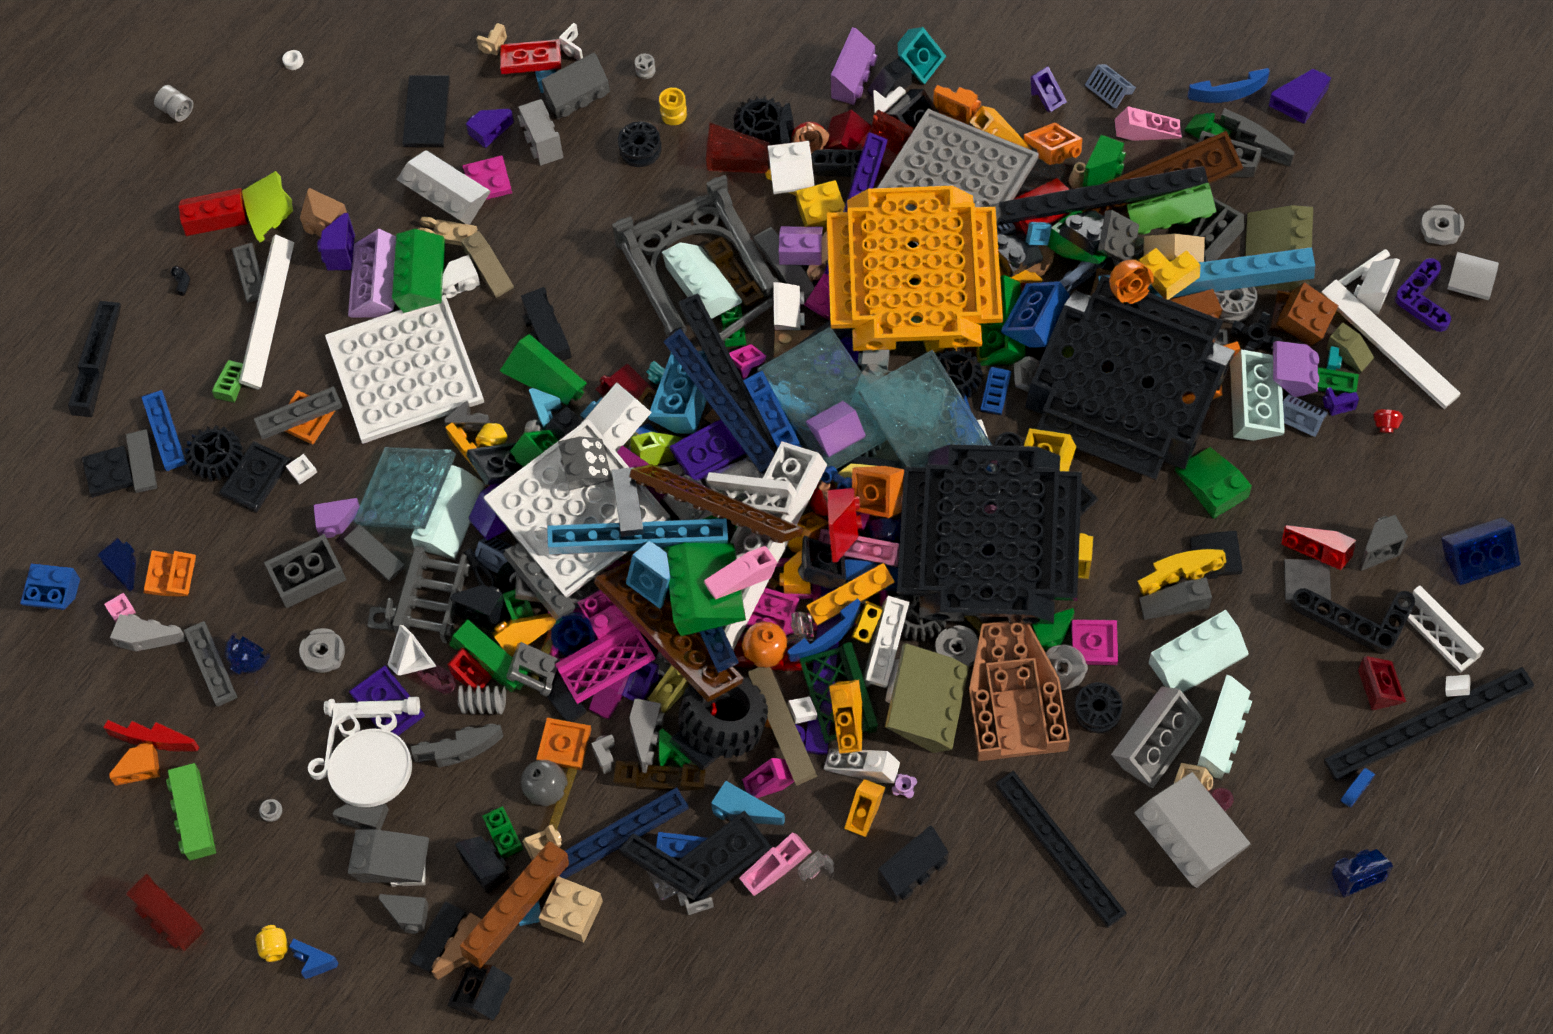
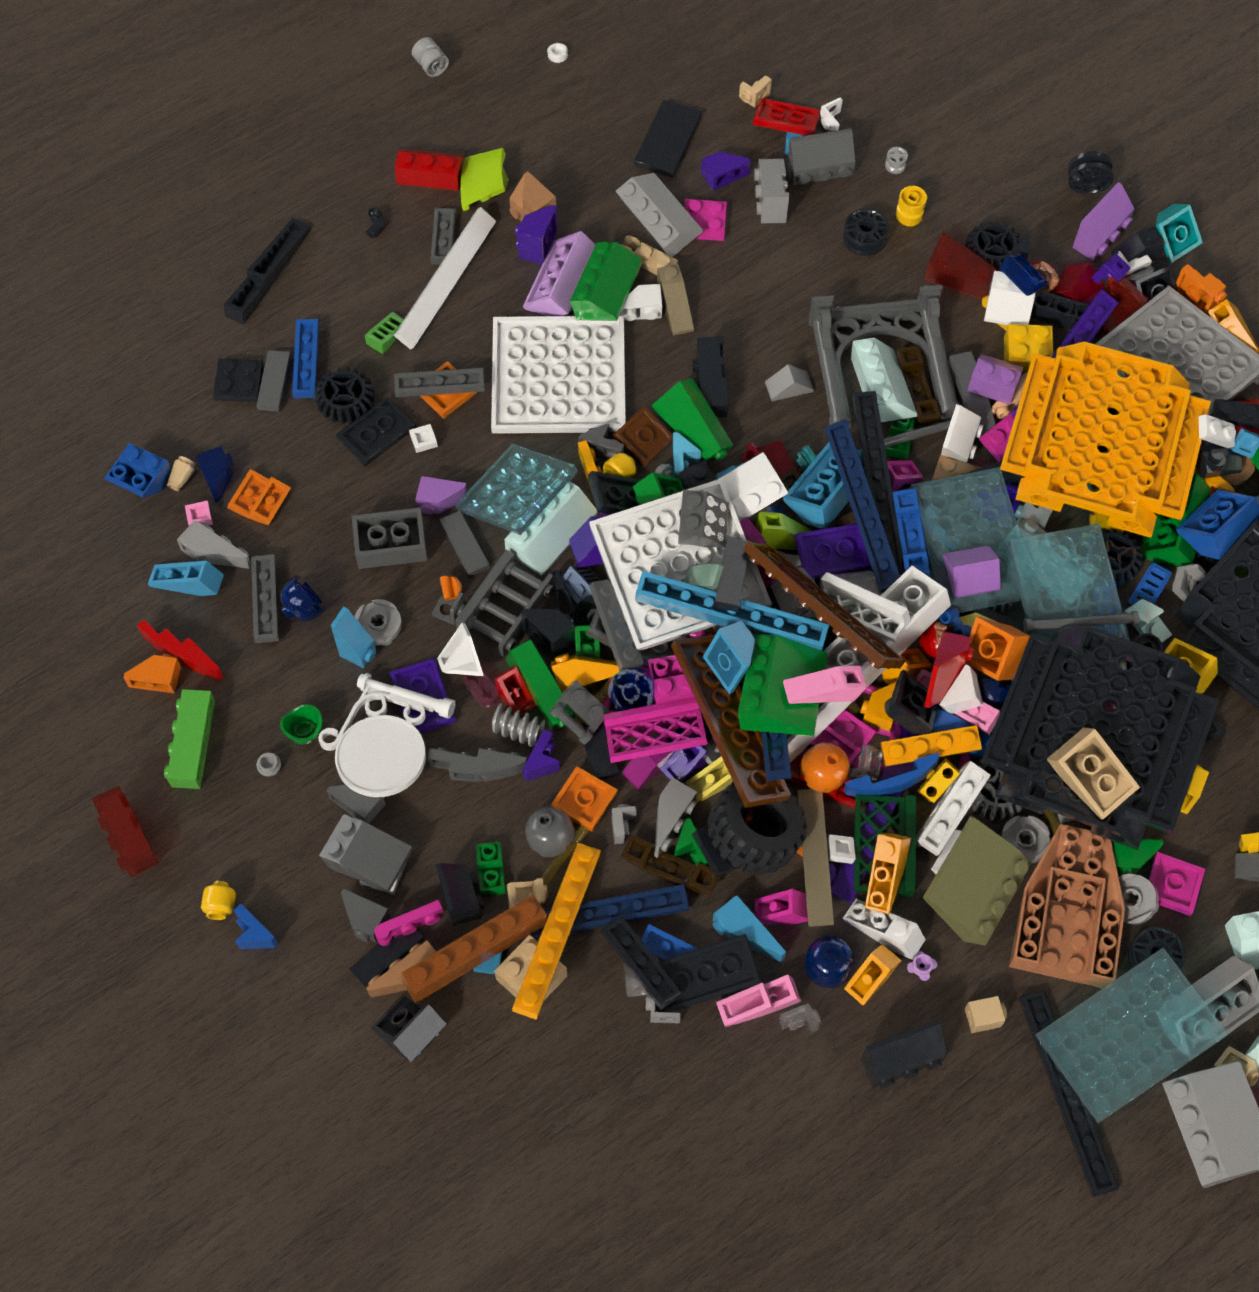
camera: 15 degrees right, 0 degrees up
(88, 575) = (181, 472): none -> tan cone
(131, 669) = (192, 578): none -> dark azure slope
(288, 764) = (302, 724): none -> green helmet
(306, 673) = (352, 639): none -> dark azure slope
(377, 597) = (450, 587): none -> orange plate
(448, 903) = (408, 922): none -> dark pink plate
(503, 401) = (643, 436): none -> reddish brown tile
(513, 724) = (539, 762): none -> dark purple slope
(580, 864) = (556, 931): none -> light orange plate
(603, 512) = (704, 576): none -> sand green slope
(617, 308) = (788, 383): none -> light grey slope
(794, 141) = (1023, 274): none -> clear blue slope
(824, 809) = (829, 961): none -> clear blue cylinder
(825, 24) = (1090, 172): none -> black wheel
(863, 538) = (963, 693): none -> white slope
(873, 108) = (1112, 267): none -> dark purple bracket
(970, 807) = (985, 1014): none -> tan brick
(986, 424) = (1132, 618): none -> dark grey bar
(994, 570) = (1093, 772): none -> tan slope
(1001, 420) = (1149, 619): none -> light aqua slope
(1008, 232) = (1217, 431): none -> white plate
(1095, 782) = (1131, 1035): none -> clear light blue plate

